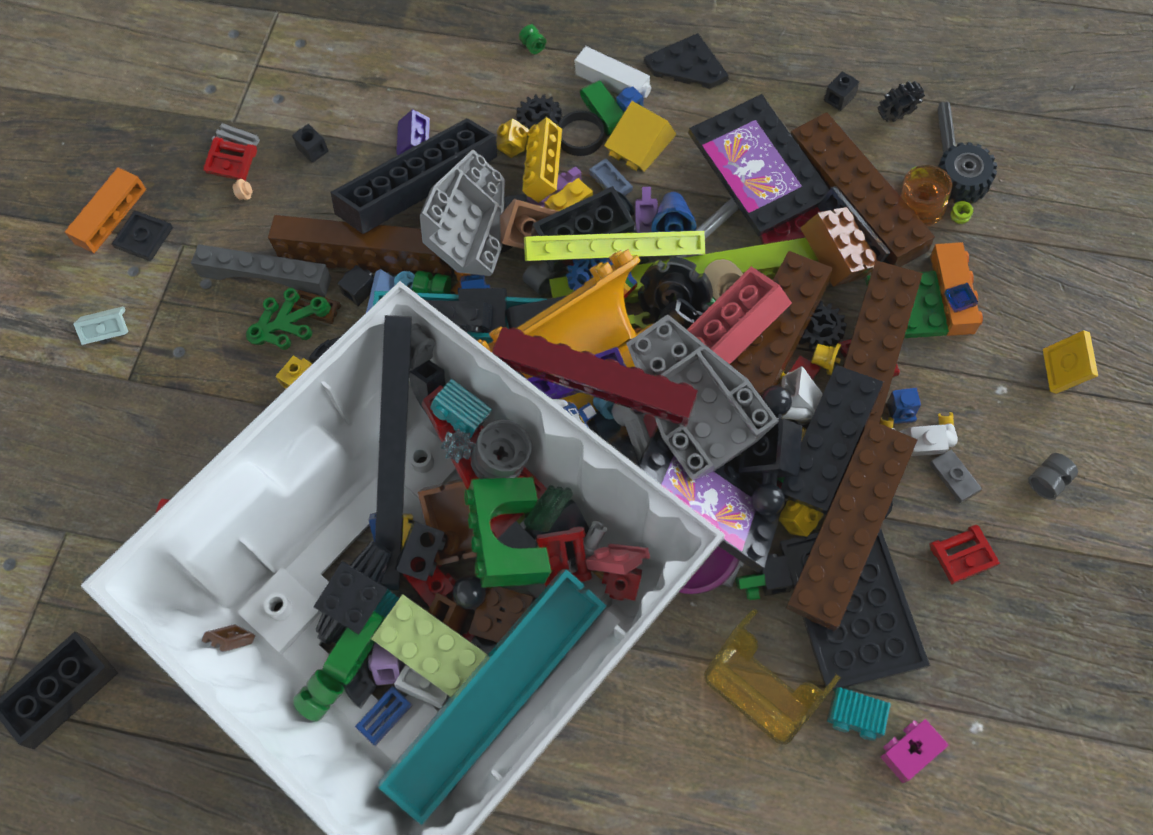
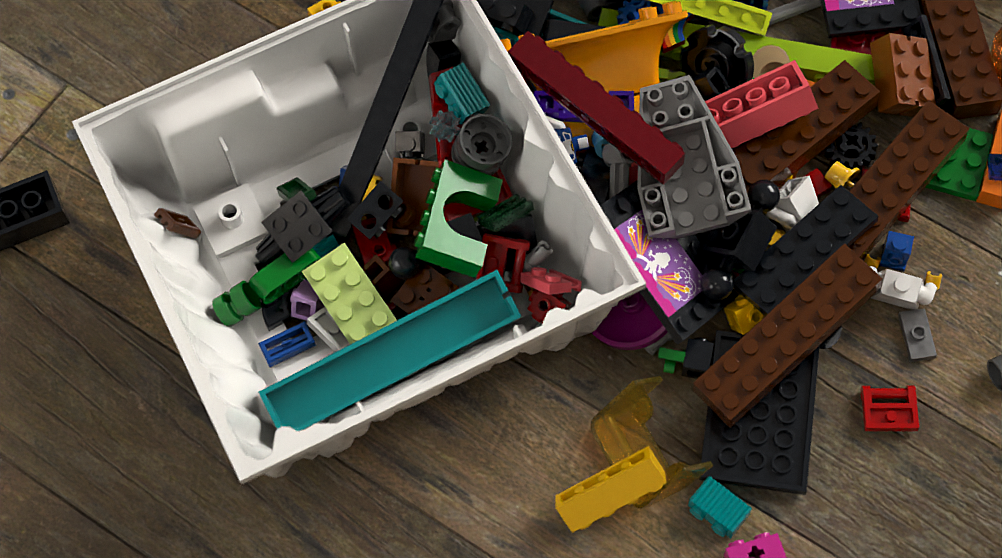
camera: 20 degrees right, 0 degrees up
(332, 557) = (294, 186): none -> dark green tile
(427, 473) = (410, 144): none -> black brick
(756, 741) = (610, 489): none -> yellow brick

